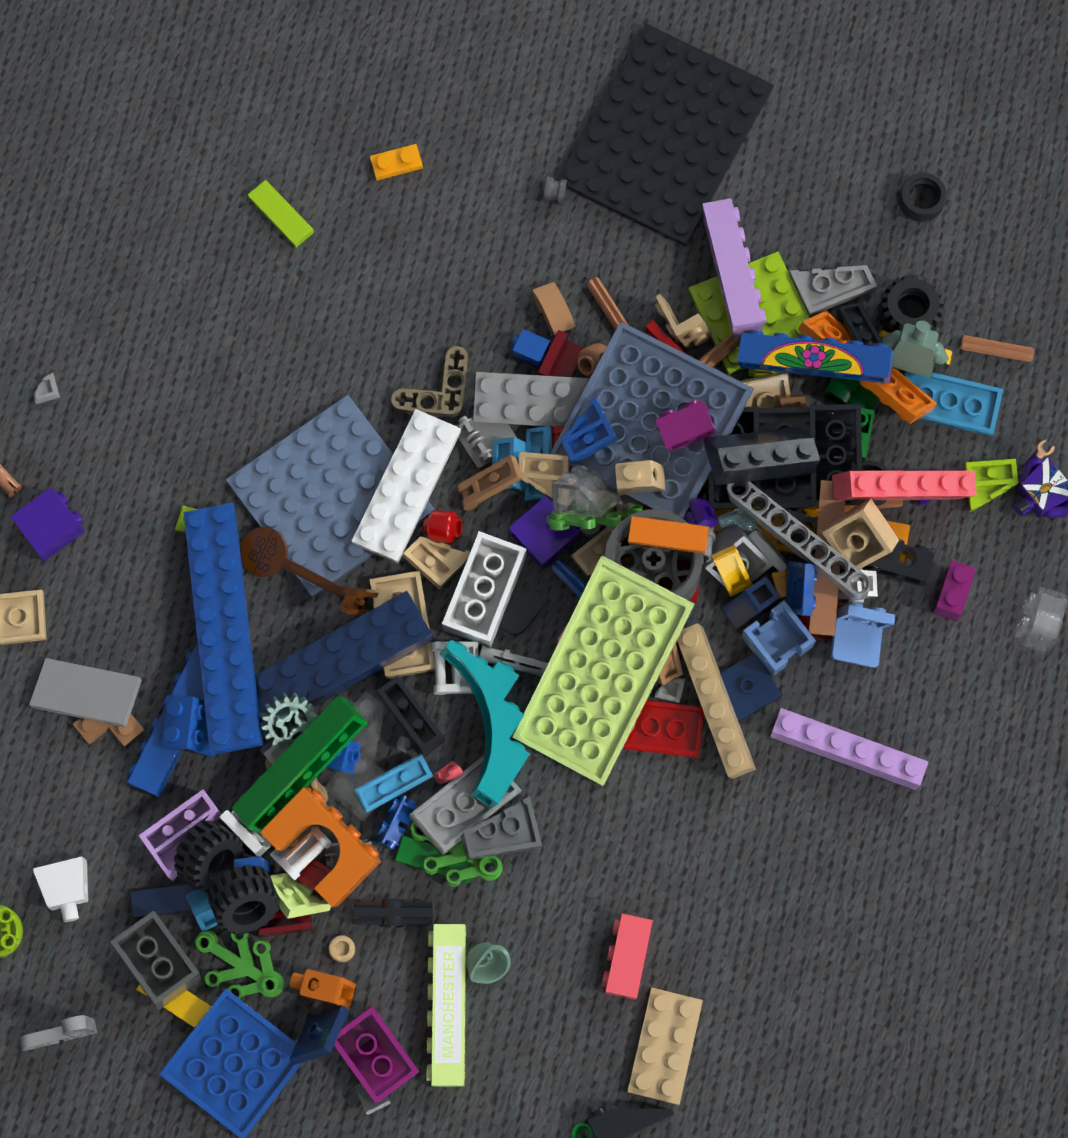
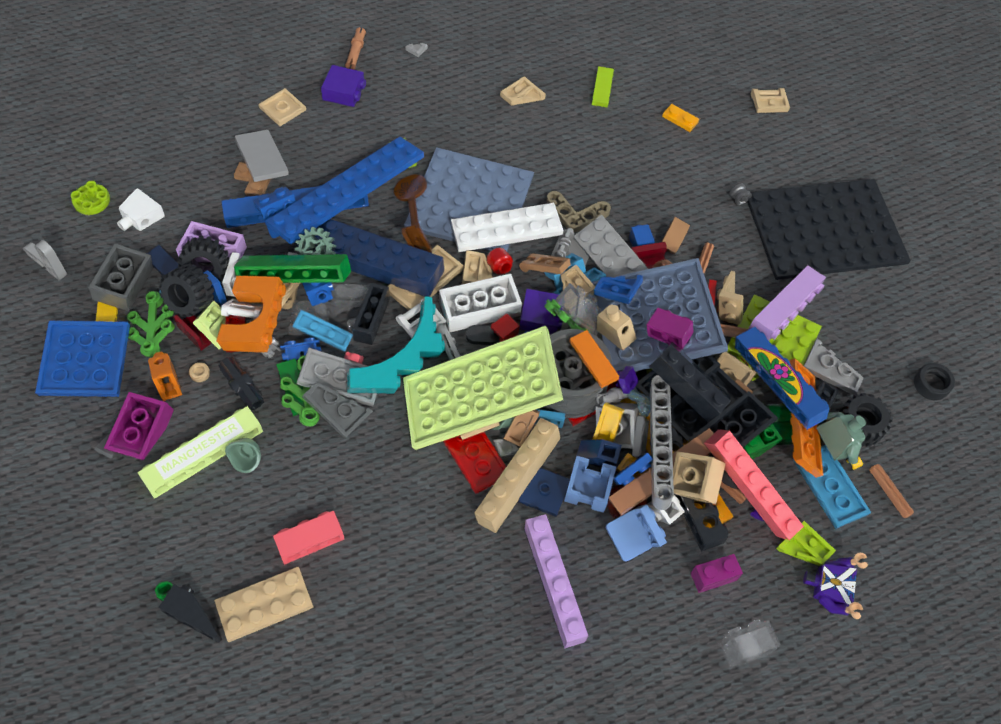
camera: 45 degrees right, 15 degrees down
(218, 316) = (522, 92): none -> tan wing
(319, 1034) = (129, 385): dark blue plate -> none
(458, 40) = (770, 100): none -> tan plate
(535, 586) = (505, 328): none -> red panel

